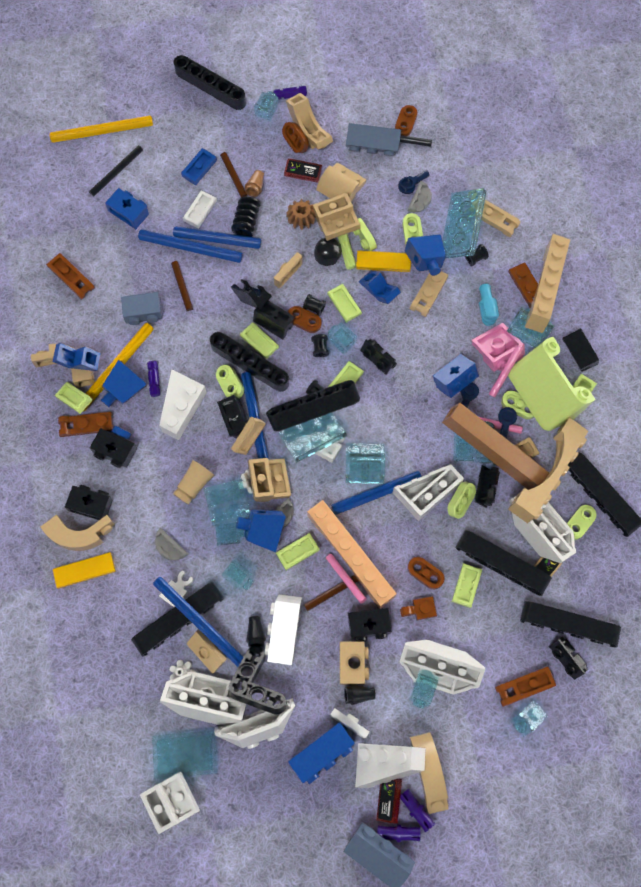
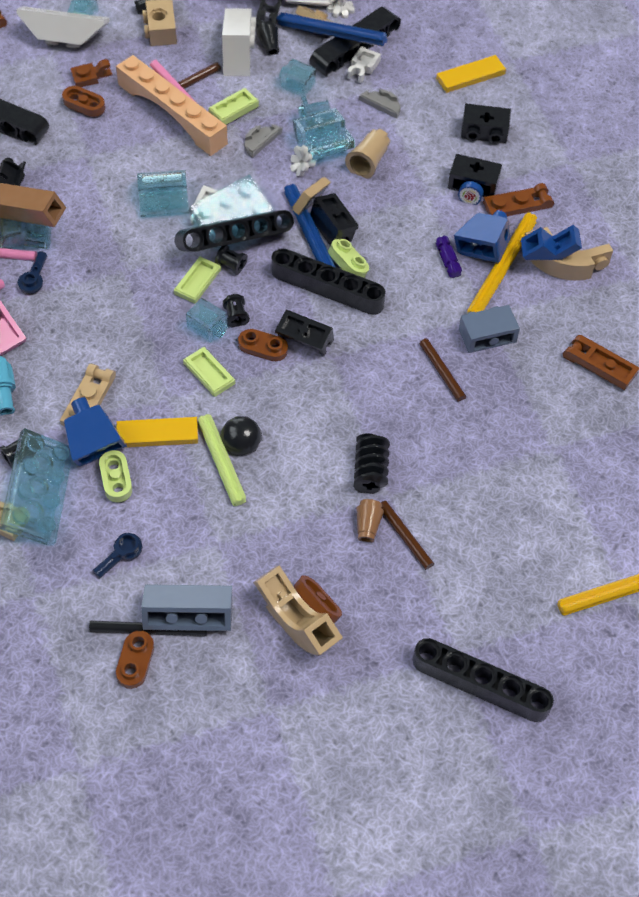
camera: 170 degrees right, 15 degrees down
(73, 397) = (538, 216): yellowish green tile -> none
(77, 540) = (492, 92): tan arch -> none
(116, 170) = (589, 521): black bar -> none
(127, 208) = (552, 457): blue brick -> none
(180, 404) = (404, 226): white wedge -> none
(191, 246) = (445, 422): blue axle -> none
(199, 166) = (462, 536): blue plate -> none
(199, 209) = (444, 472): white plate -> none
(217, 237) = (416, 437): blue axle -> none
(251, 295) = (340, 350): black hinge -> none
(259, 340) = (320, 311): yellowish green tile -> none
(262, 528) = (276, 109): blue torso -> none
(266, 105) = (378, 639): clear light blue brick -> none
(269, 479) = (280, 161): tan brick -> none
(287, 270) = (295, 398): tan plate -> none
(290, 92) = (340, 686): dark purple axle -> none
(301, 214) = (288, 478): medium nougat gear -> none
(303, 170) = (297, 553): tile -> none
(314, 304) = (250, 359): black bush -> none
(336, 216) = (231, 460): tan brick -> none
(340, 180) = (232, 534): tan brick -> none
(367, 240) = (185, 453): yellowish green plate -> none
(372, 494) = (154, 165): blue axle -> none
(373, 350) = (163, 313): black hinge -> none
(378, 287) = (166, 398): blue slope -> none
(379, 617) = (147, 49): black brick -> none
(421, 198) = (104, 531): light grey tile -> none
(428, 491) = (82, 165): white wedge -> none
(455, 375) = (40, 298): blue brick -> none
(461, 500) = (46, 162): yellowish green plate -> none
(466, 585) = (36, 94): yellowish green plate -> none

